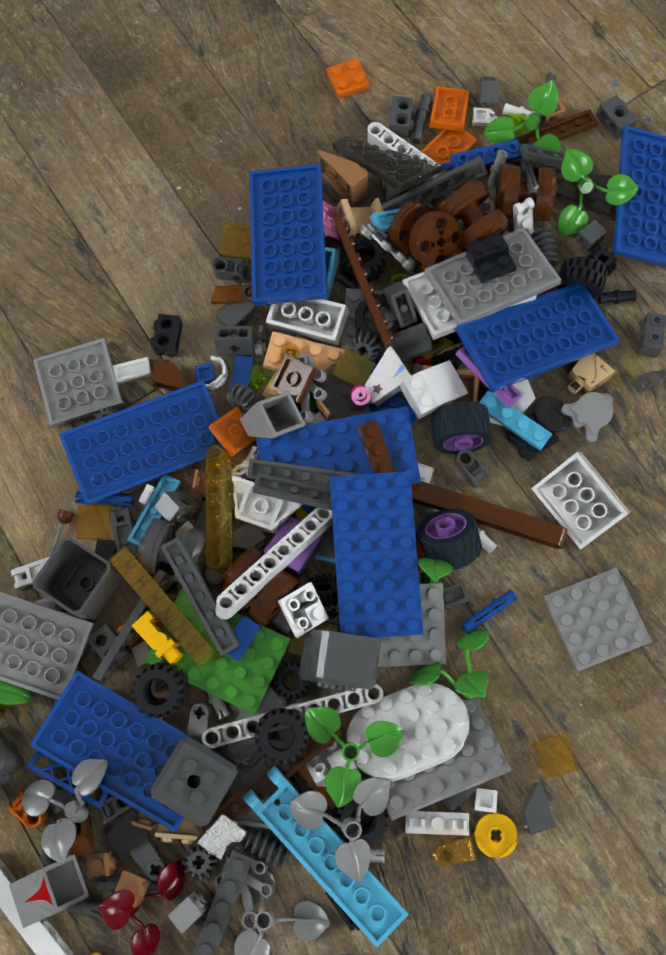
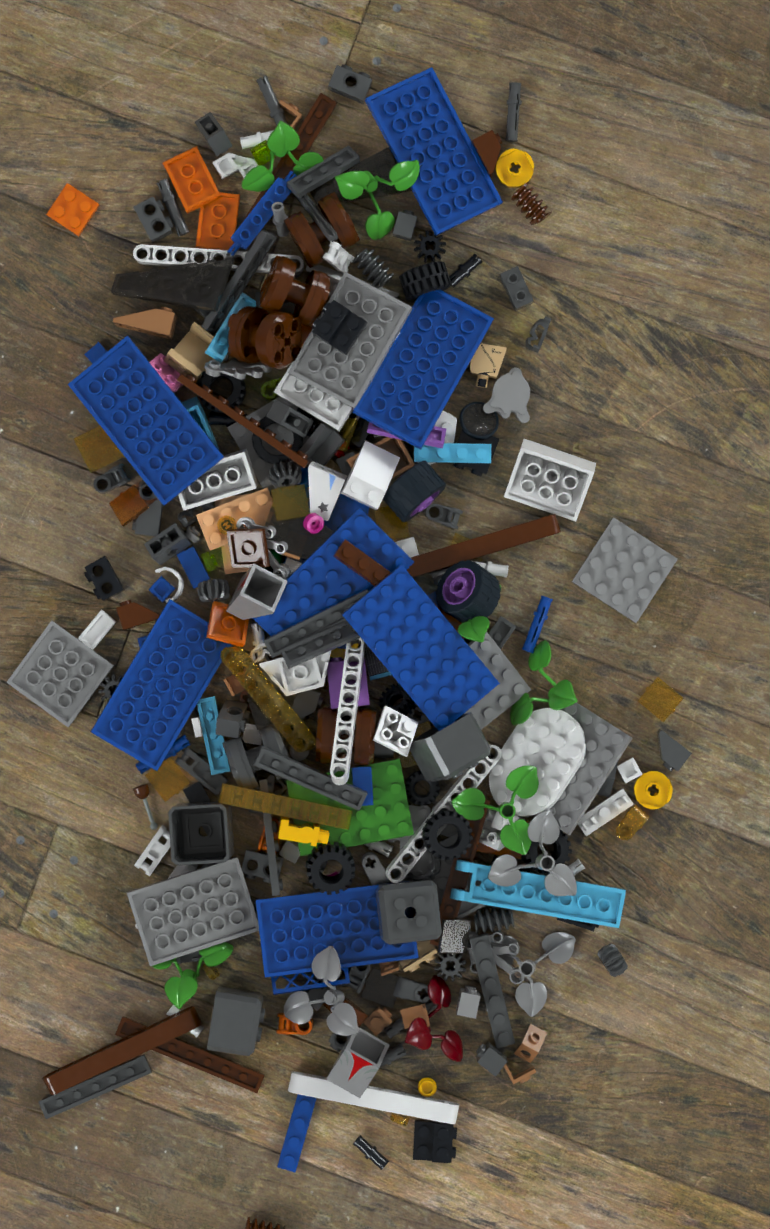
camera: 40 degrees left, 15 degrees up
(424, 445) = (391, 524): none -> clear yellow piece

